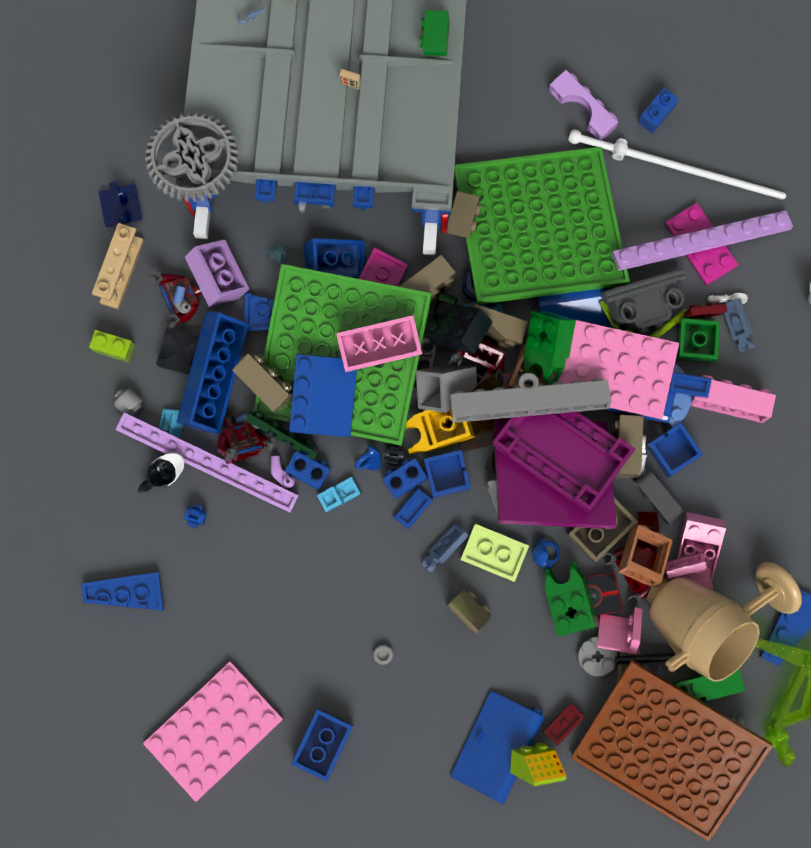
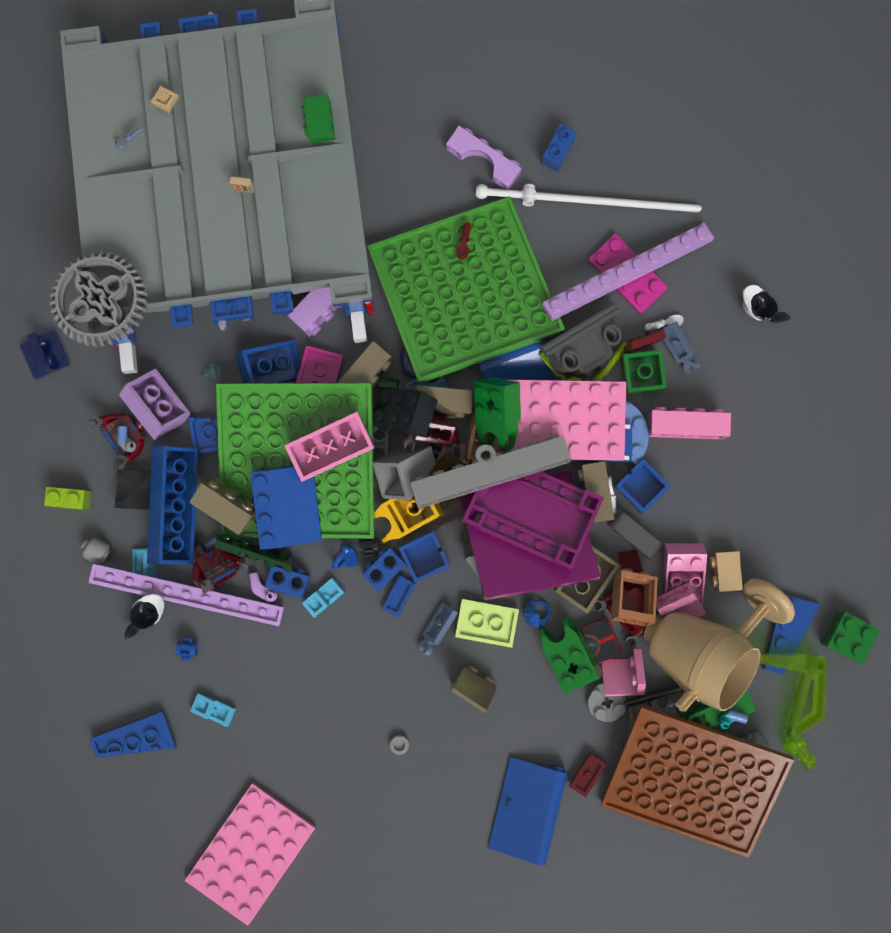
camera: 10 degrees left, 5 degrees up
(118, 266) = (54, 418): tan fence -> none
(207, 581) = (213, 709): none -> medium azure slope
(322, 744) = (358, 846): blue brick -> none
(391, 215) = (313, 311): none -> lavender brick
(463, 214) = (386, 296): dark tan brick -> none
(537, 764) = (570, 823): slope -> none
(546, 187) = (463, 249): none -> dark red piece
(690, 385) = (645, 421): blue tile -> none
(717, 691) = (730, 716): none -> arm
(742, 551) = (726, 571): none -> tan brick

